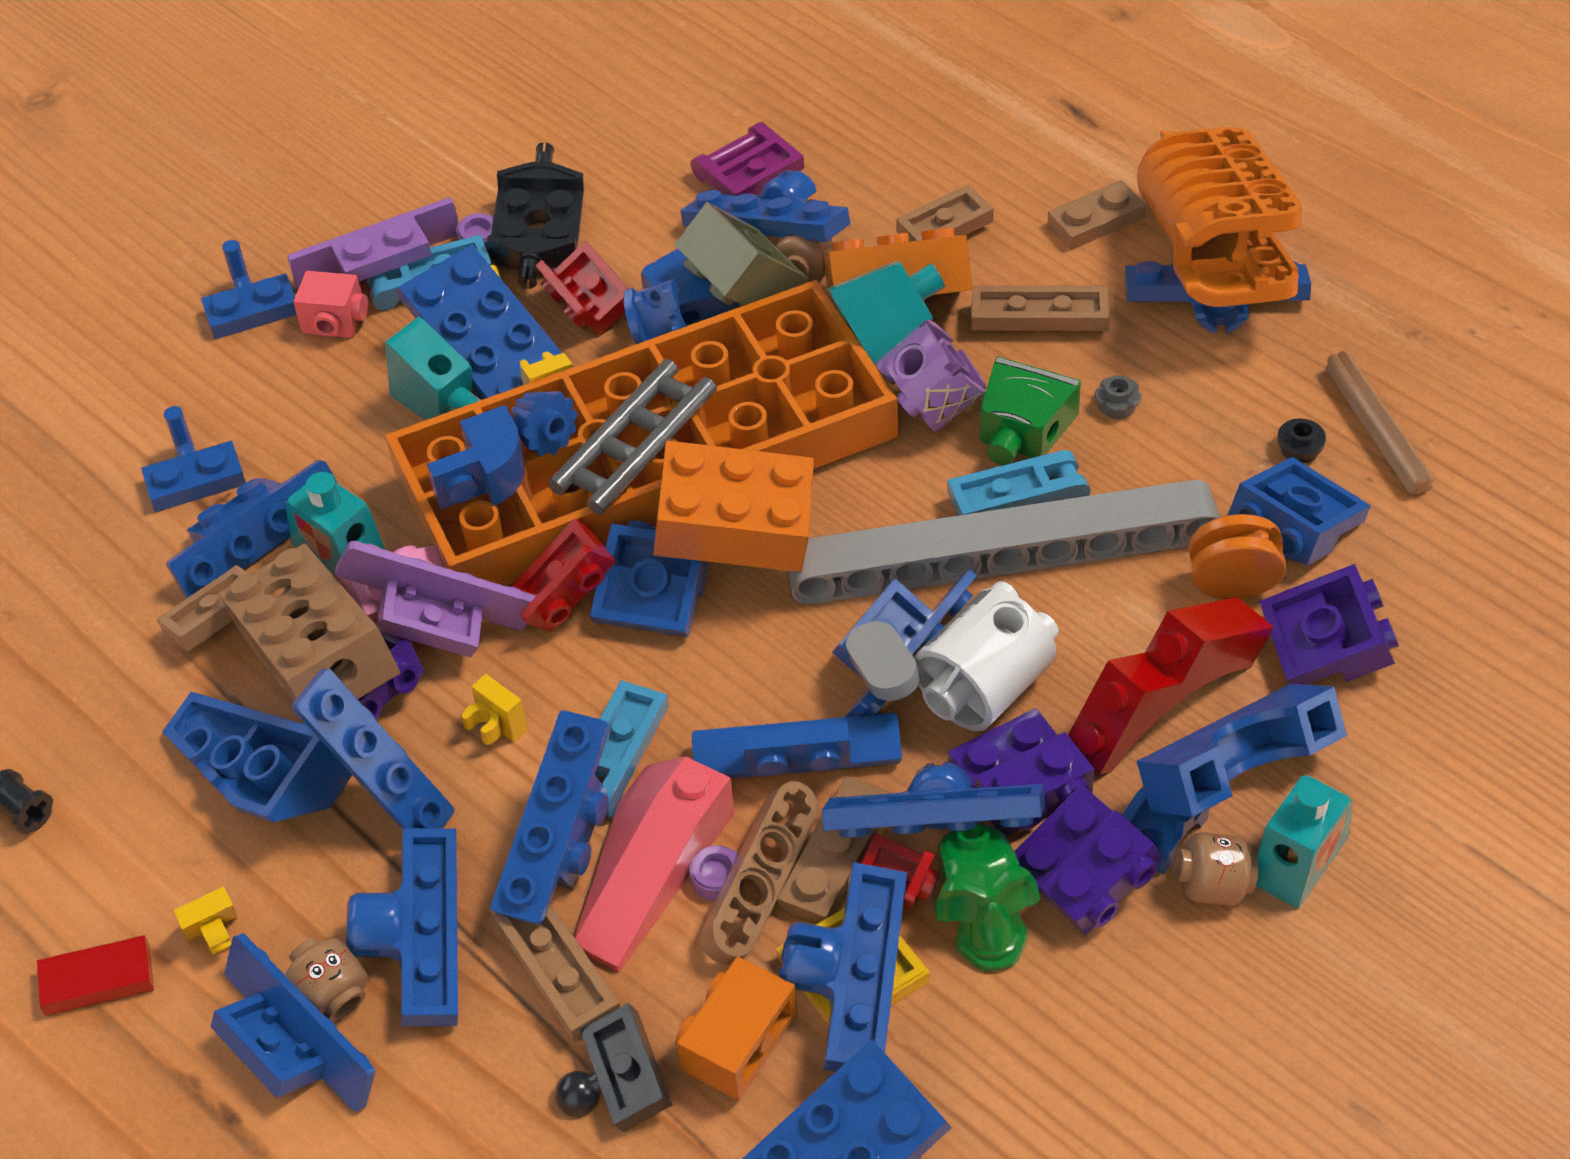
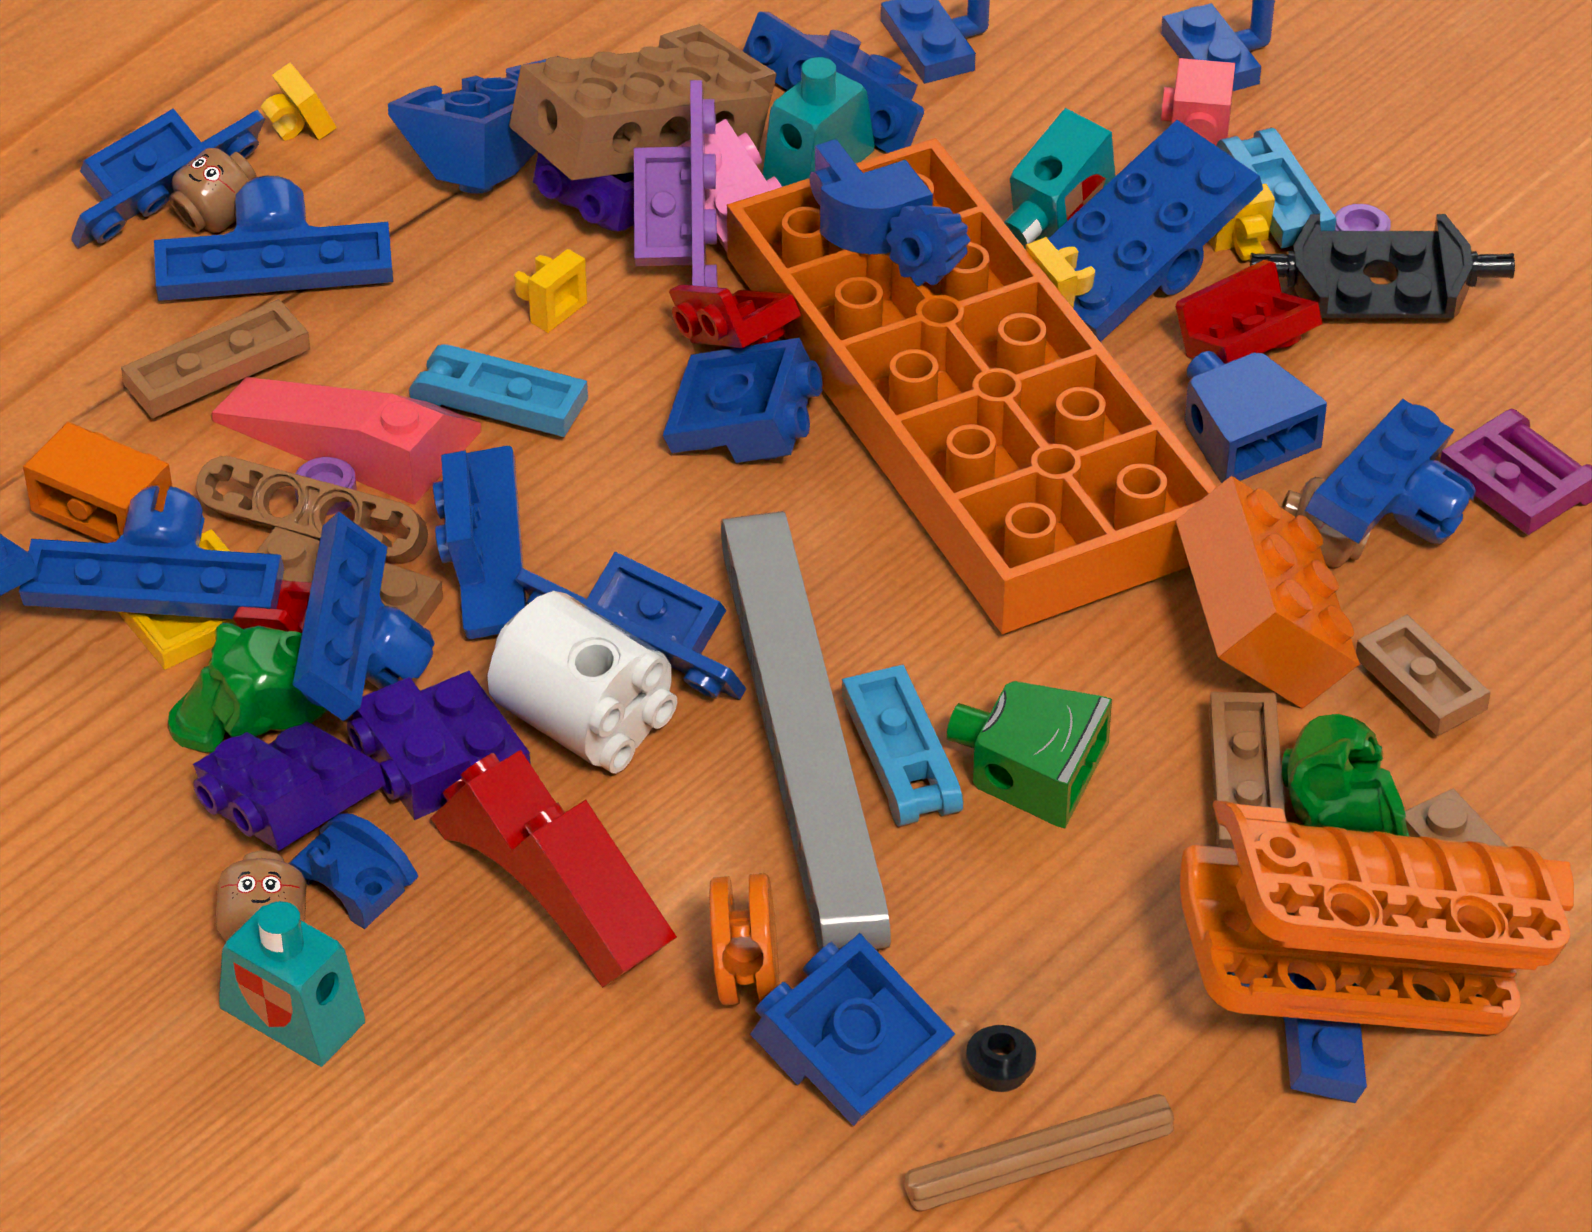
camera: 85 degrees right, 5 degrees down
(95, 975) = (251, 46): red tile -> none
(370, 753) = (449, 159): blue bracket -> none
(380, 245) = (1302, 132): medium lavender bracket -> none
(557, 820) = (368, 327): blue bracket -> none
(622, 1071) = (66, 399): black plate -> none
(632, 458) = (935, 359): dark grey bar -> none
(653, 316) = (1165, 353): blue piece -> none
(734, 506) = (795, 419): orange brick -> none
(735, 258) = (1260, 421): olive slope -> none
(883, 661) = (585, 574): light grey tile -> none
(885, 305) = (1161, 553): teal torso -> none
(932, 375) = (1065, 626): medium lavender brick -> none
(1065, 250) = (1339, 778): none -> green head
(1118, 397) = (1082, 859): dark grey plate -> none
(1198, 767) = (369, 850): blue arch -> none
(1330, 628) = (634, 1048): dark purple plate -> none

